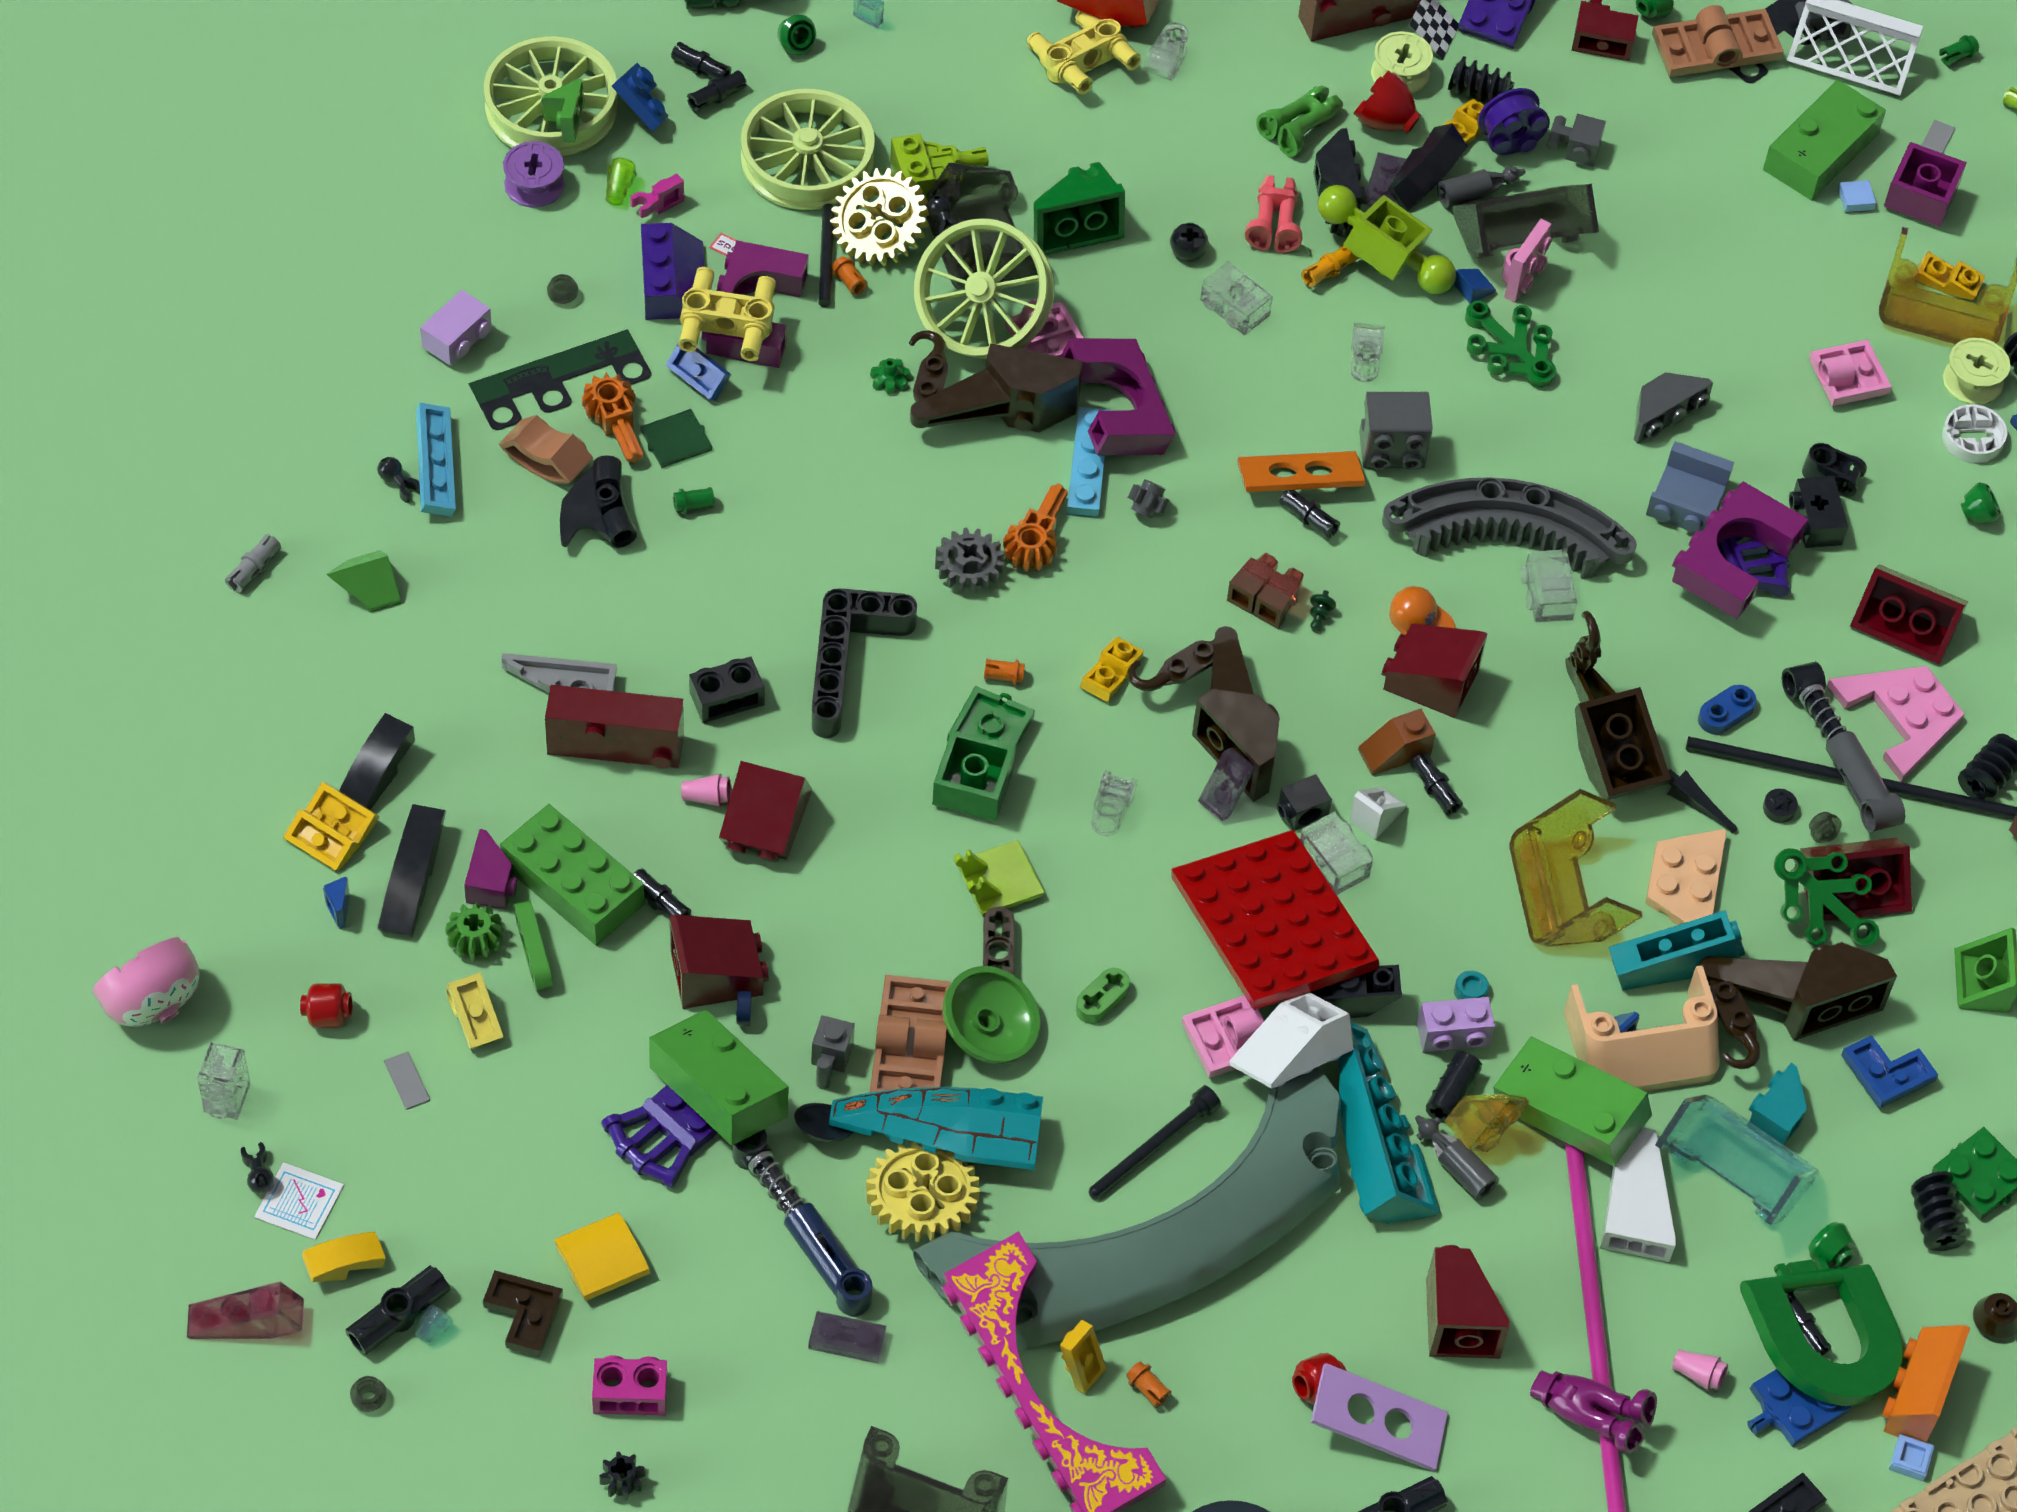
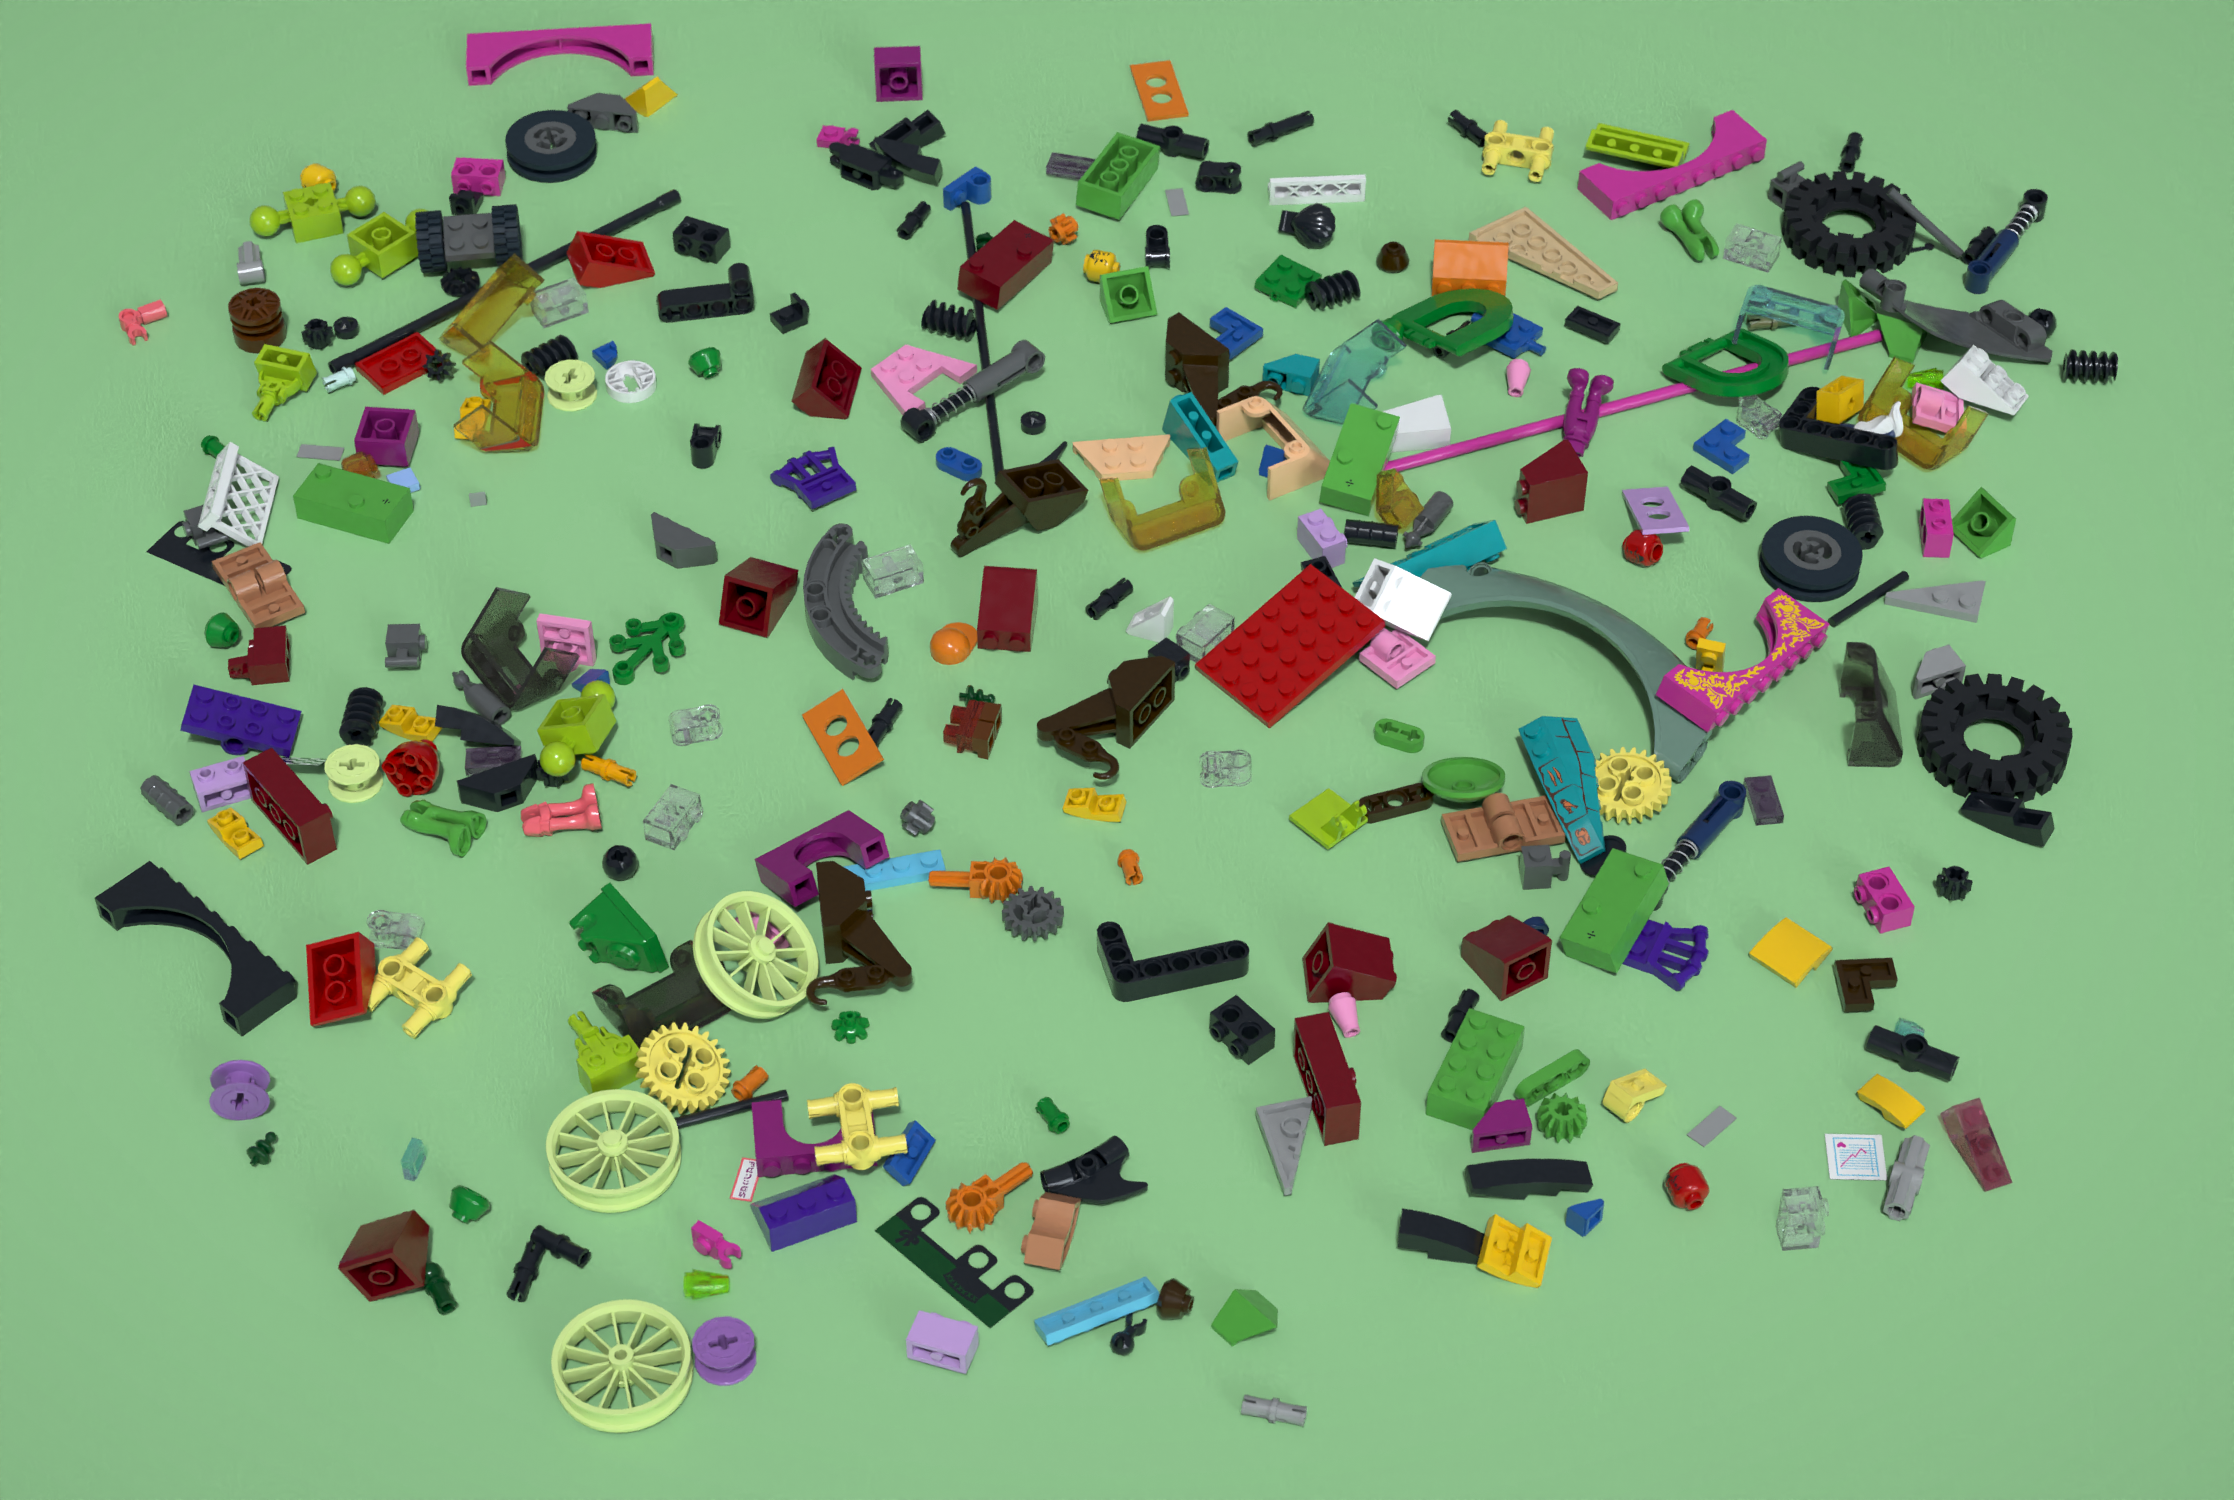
camera: 105 degrees left, 10 degrees down
(150, 985) = (1747, 1290): bright pink cylinder -> none
(237, 1224) = (1906, 1178): none -> light grey piece
(260, 1178) = (1858, 1179): black arm -> none
(364, 1385) = (1986, 1051): clear smoke plate -> none
(414, 520) = (1174, 1300): none -> dark brown cone
(562, 289) = (853, 1280): clear smoke plate -> none
(565, 108) = (651, 1318): bright green slope -> none
(635, 89) = (599, 1291): blue plate -> none
(676, 438) = (985, 1154): clear green piece -> none
(940, 207) = (666, 1015): black arm -> none
(974, 775) = (1250, 847): green brick -> none
(993, 718) = (1190, 859): green plate -> none
(1203, 1103) = (1460, 658): black piece -> none
(1226, 784) = (1183, 697): plate -> none
(1396, 430) = (786, 678): dark grey piece -> none
(1398, 742) = (1085, 622): dark orange slope -> none
(1471, 985) = (1278, 546): teal tile -> none
(1513, 121) = (411, 677): dark purple wheel -> none
(1554, 449) = (757, 596): none -> dark red slope
(1689, 487) = (759, 520): sand blue panel -> none
(1742, 514) = (841, 483): magenta arch -> none
(1811, 254) = (477, 499): none -> light grey piece
(1820, 503) = (750, 443): black brick -> none
(1821, 894) = (1110, 377): green plant -> none
(1824, 827) = (1045, 393): clear smoke plate -> none
(1850, 372) = (599, 452): bright pink plate -> none
(1881, 155) = (360, 464): none -> clear orange head
(1883, 862) = (1080, 371): dark red slope -> none
(1911, 1457) = (1518, 281): light blue tile -> none

